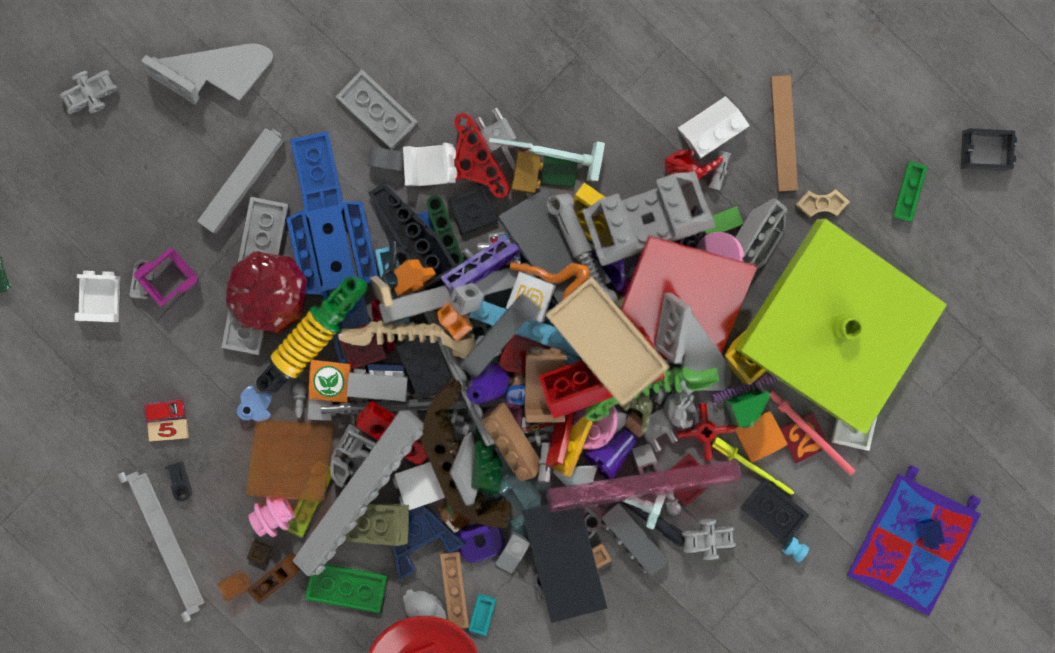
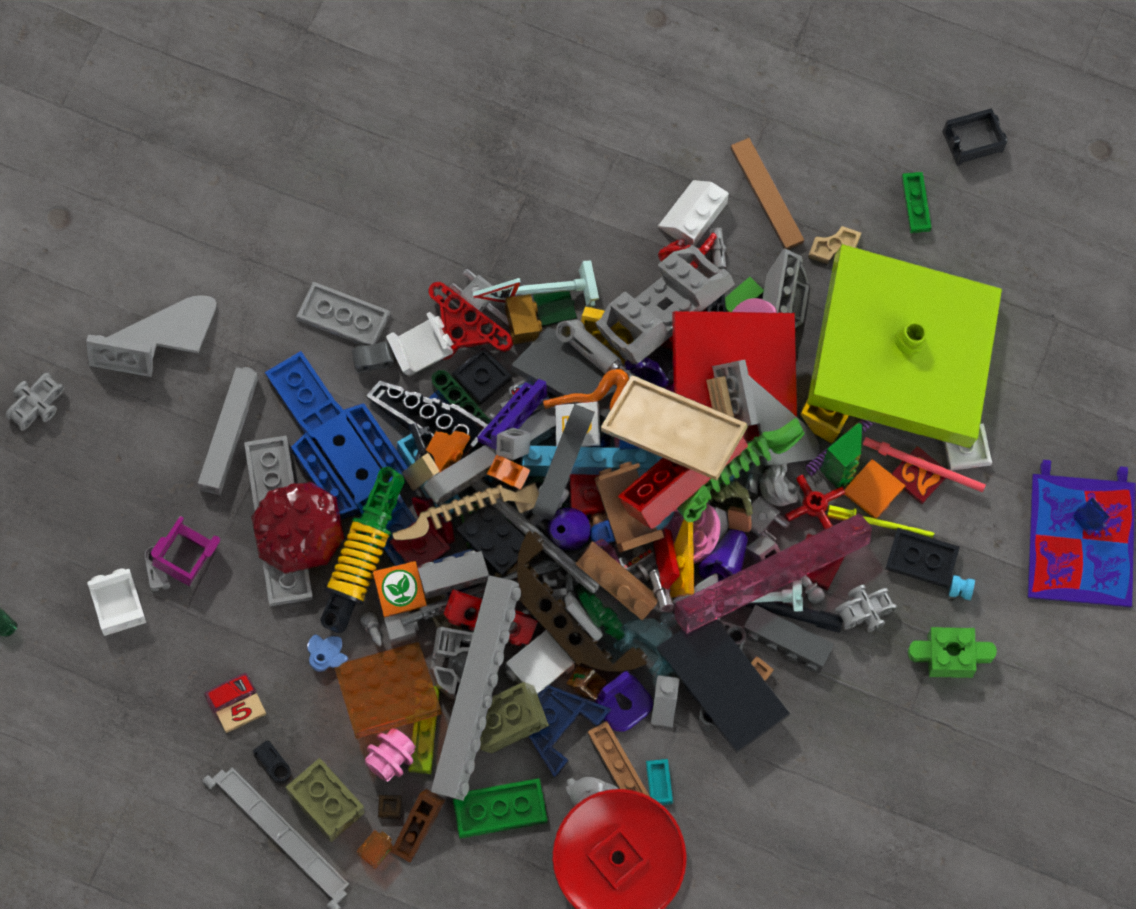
camera: 25 degrees left, 20 degrees down
(207, 532) = (325, 800): none -> olive piece
(659, 324) = (720, 395): none -> tan tile
(763, 601) = (951, 652): none -> bright green brick

